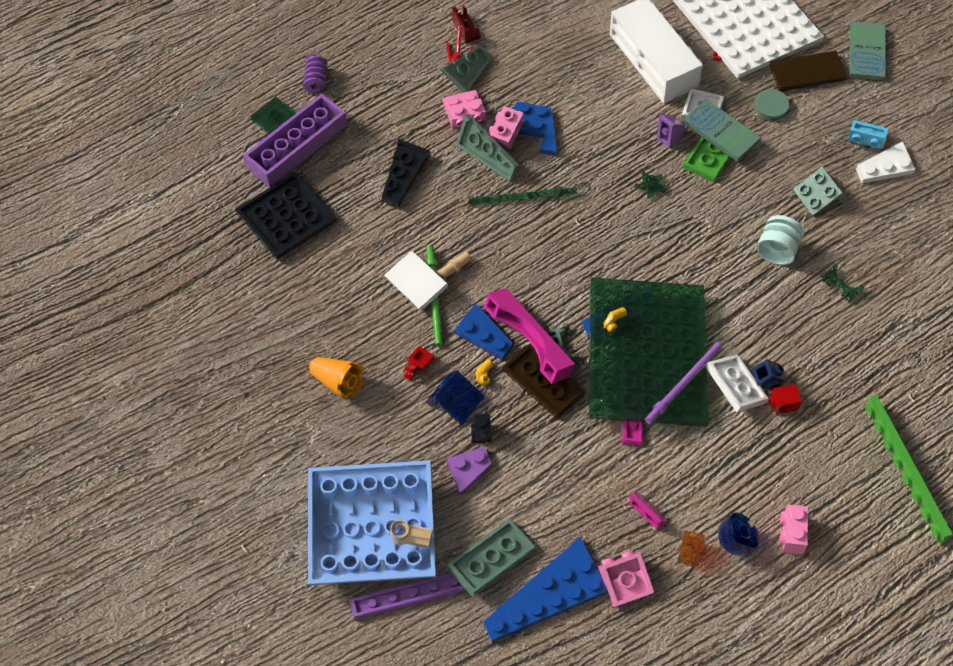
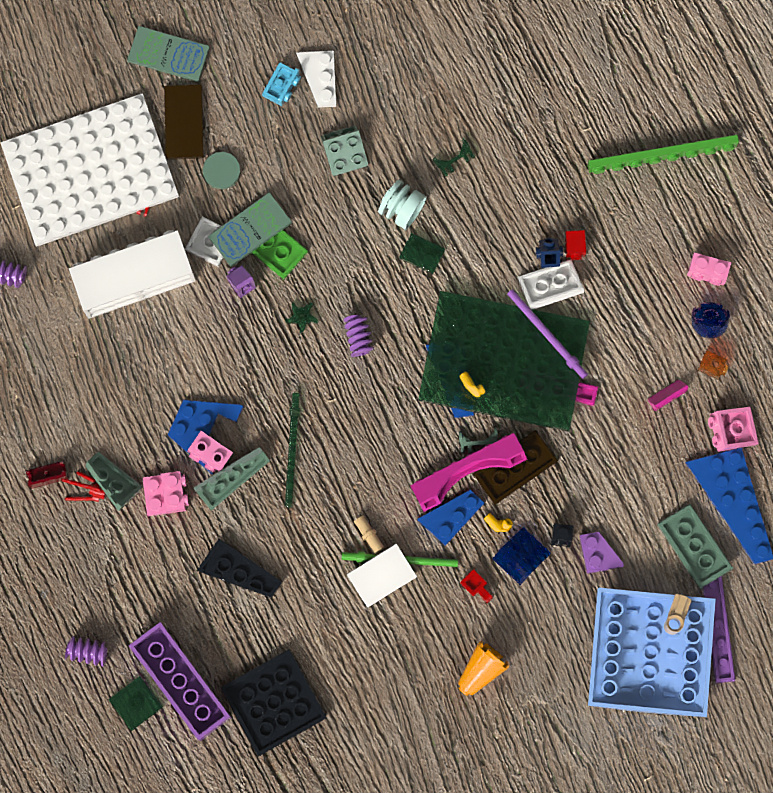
camera: 80 degrees left, 20 degrees up
(643, 227) = (358, 335): none -> medium lavender piece
(738, 271) = (422, 253): none -> clear green plate

